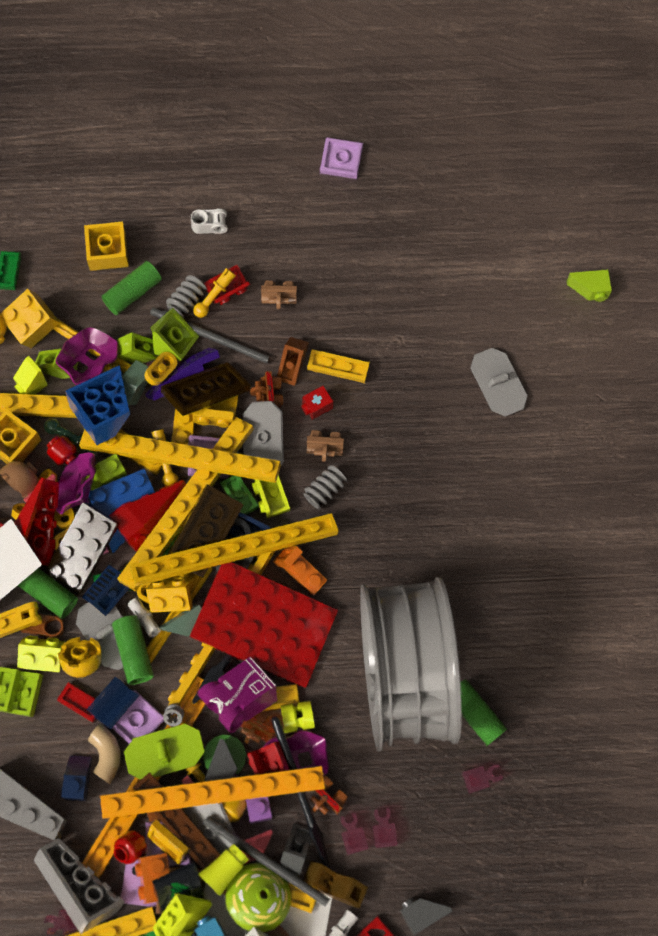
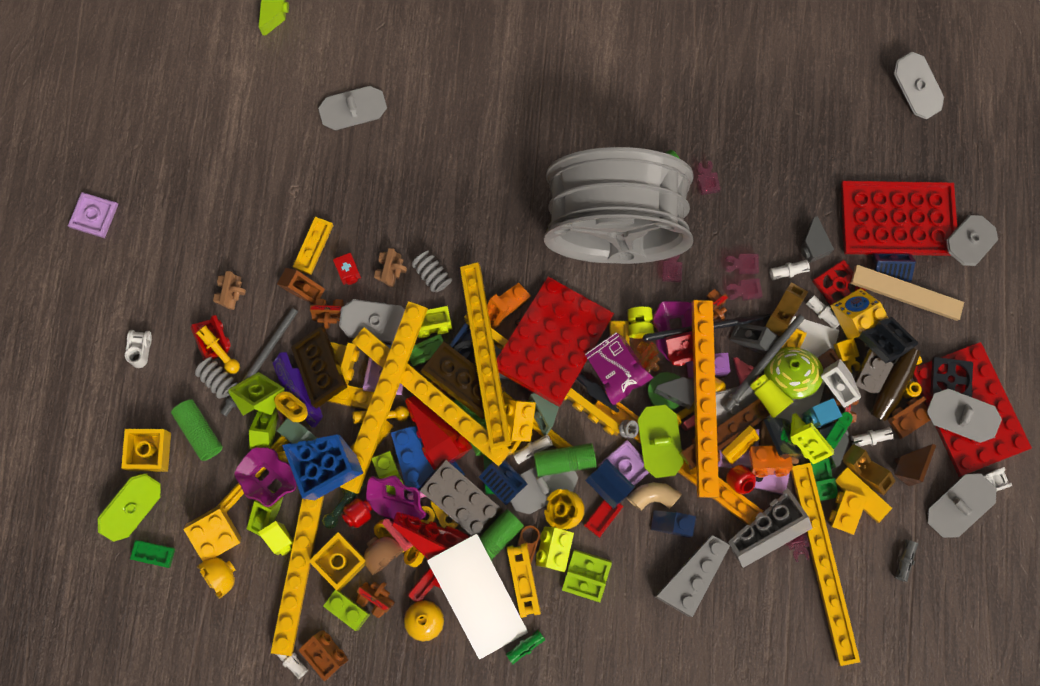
camera: 80 degrees left, 5 degrees up
(49, 241) = (129, 507): none -> lime shield
(365, 748) = (672, 270): none -> clear pink plate
(385, 885) = (789, 269): none -> white pin

